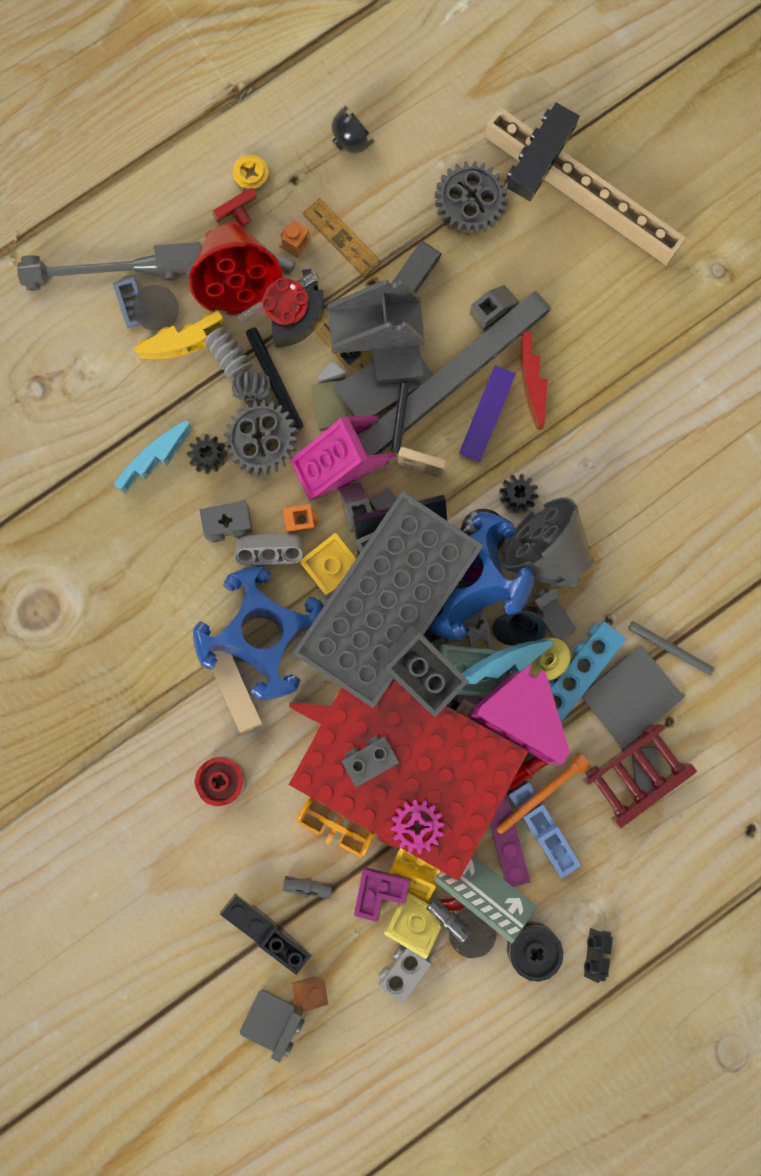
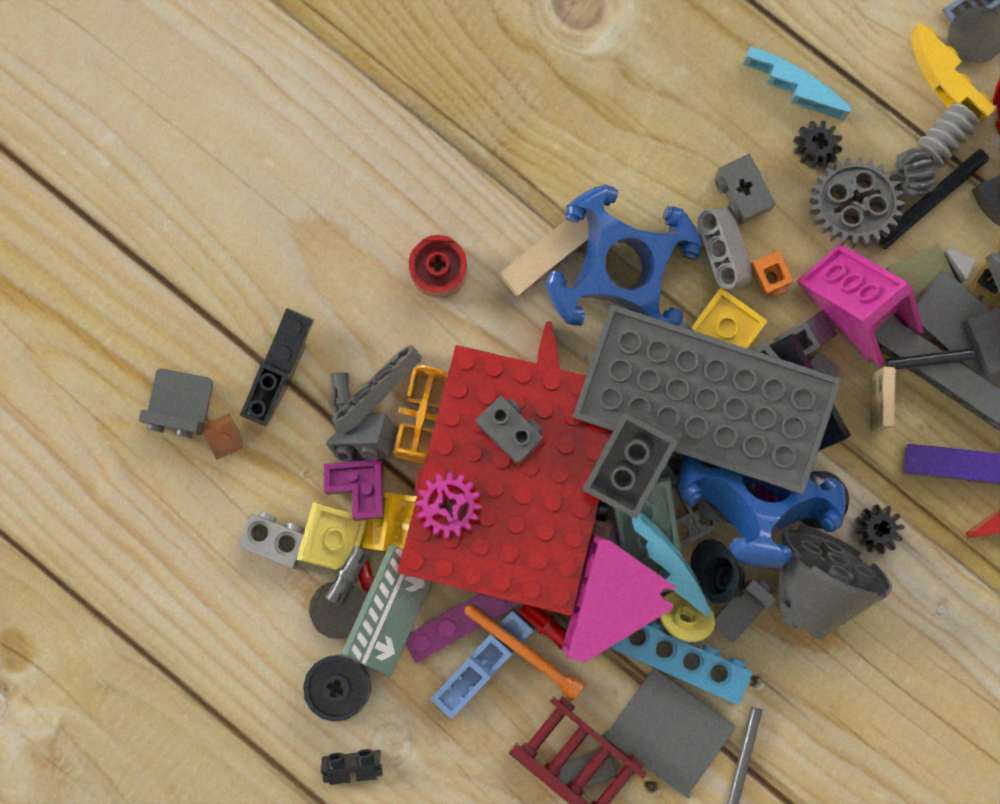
camera: 80 degrees right, 0 degrees up
(305, 857) = (376, 389): none -> dark grey beam
(342, 877) = (368, 440): none -> dark grey slope

